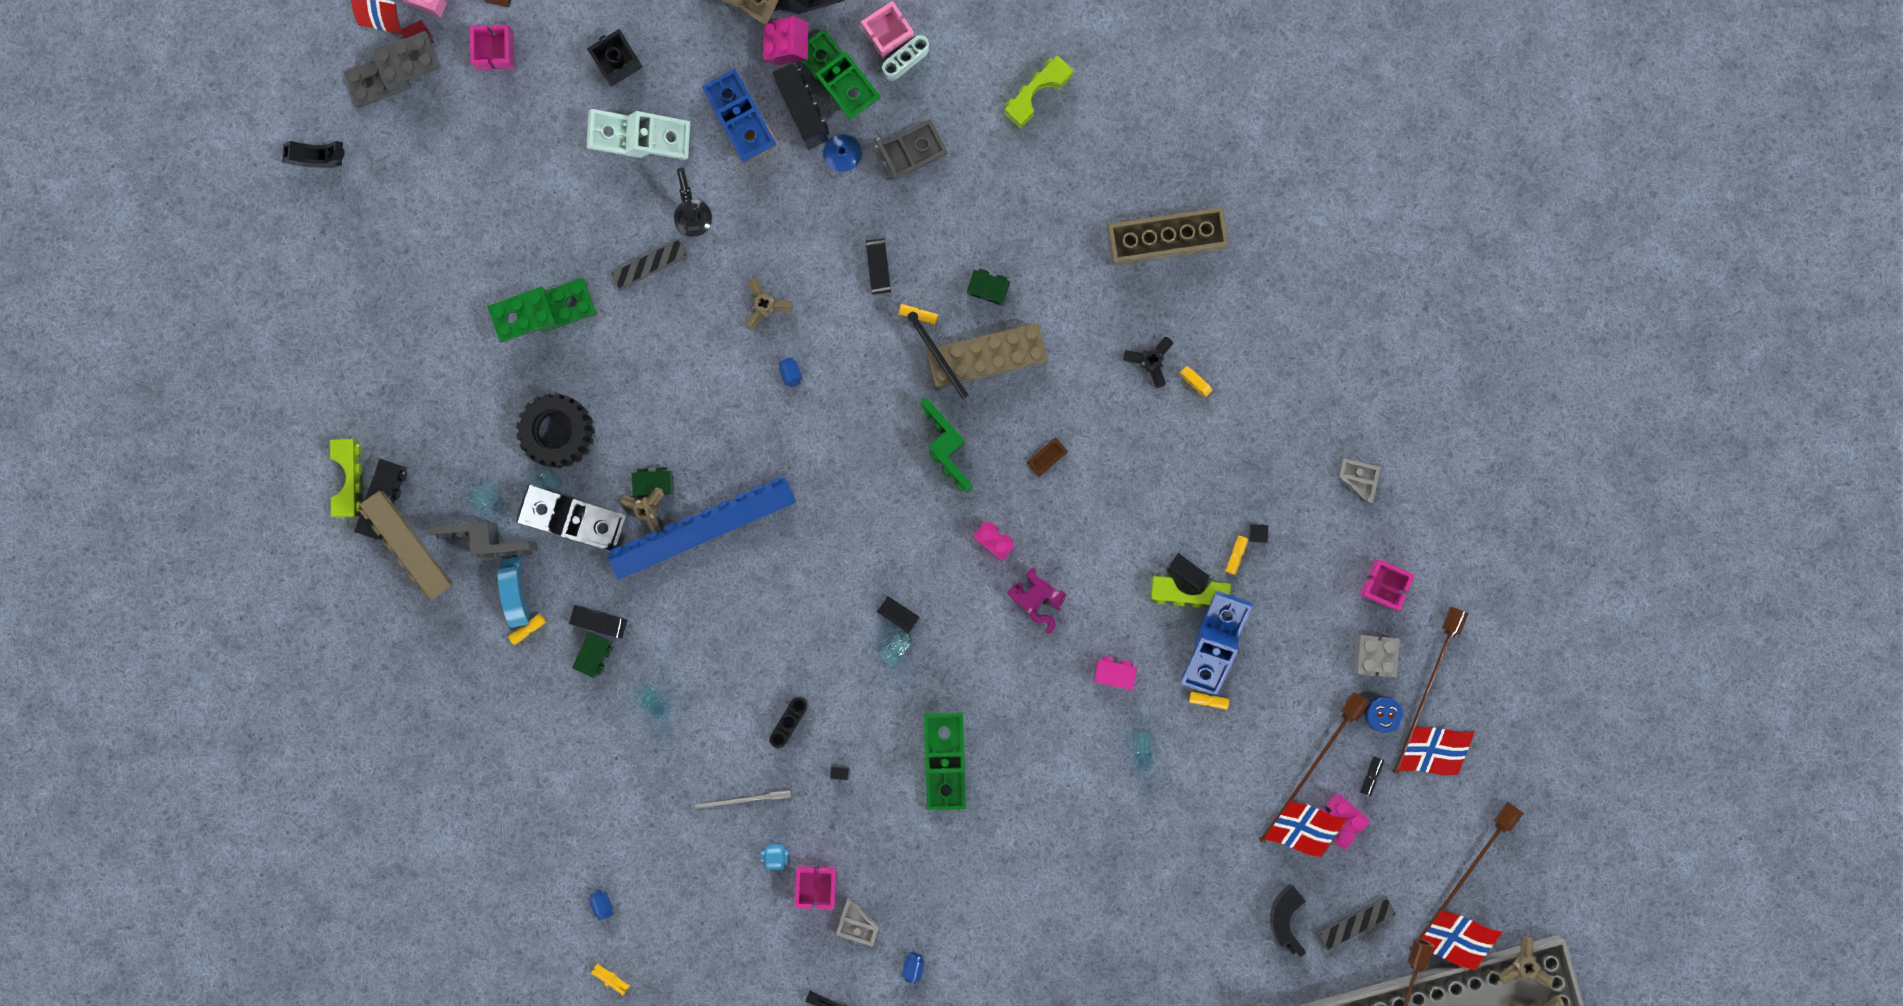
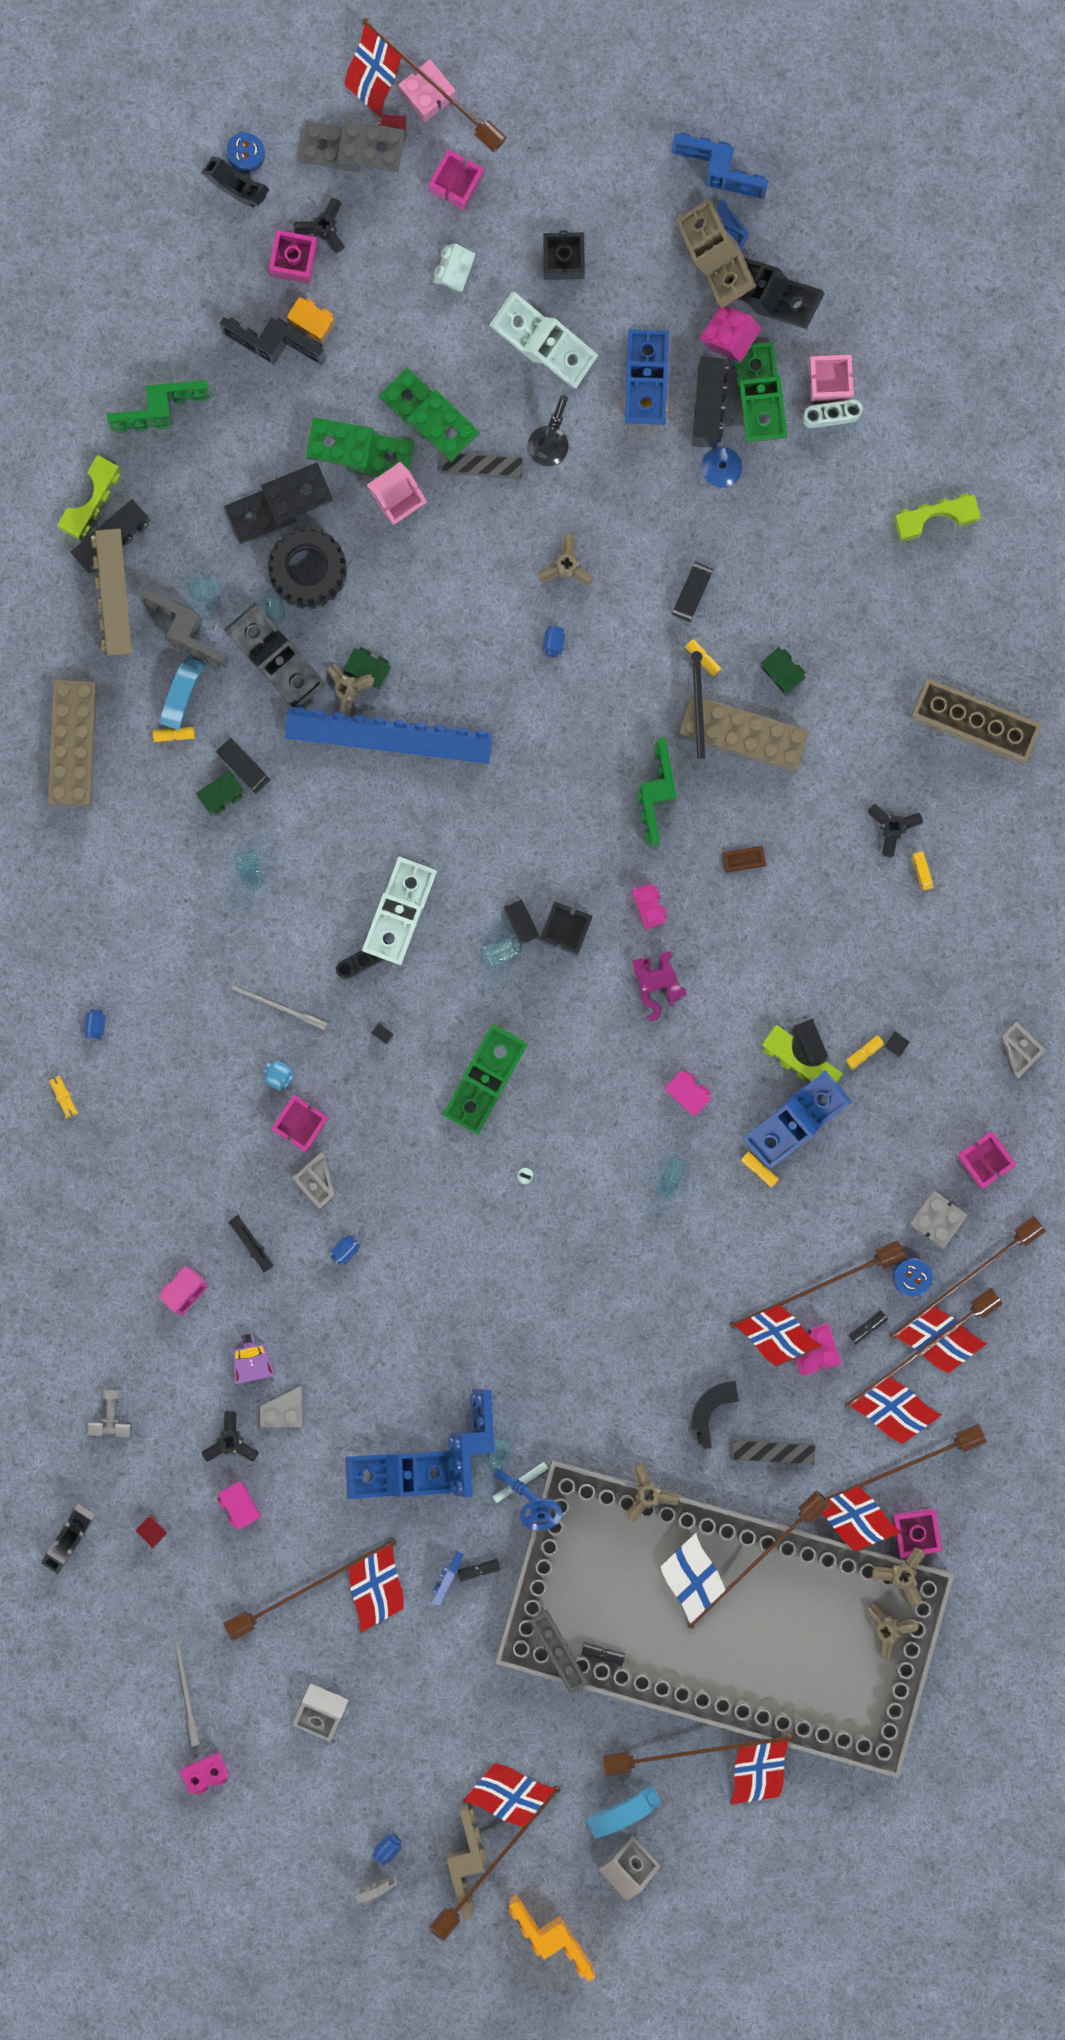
camera: 20 degrees right, 0 degrees up
(309, 125) = (245, 152): none -> blue head
(357, 370) = (159, 406): none -> green bracket
(396, 186) = (293, 256): none -> dark pink brick
(413, 152) = (315, 226): none -> black bush
(419, 263) = (273, 340): none -> black bracket
(441, 228) = (311, 319): none -> light orange brick
(448, 686) = (73, 743): none -> dark tan brick
(501, 391) = (279, 503): none -> black bracket
(532, 118) = (454, 267): none -> light aqua bracket
(581, 248) = (429, 414): none -> green bracket
(592, 329) = (396, 493): none -> bright pink piece
(794, 665) = (399, 911): none -> light aqua bracket
(910, 150) = (786, 501): dark grey bracket -> none
(937, 599) = (565, 928): none -> black piece
(1022, 814) = (523, 1180): none -> light aqua hinge
(1432, 827) = (894, 1406): none -> flag
(1514, 919) = (918, 1531): none -> dark pink brick

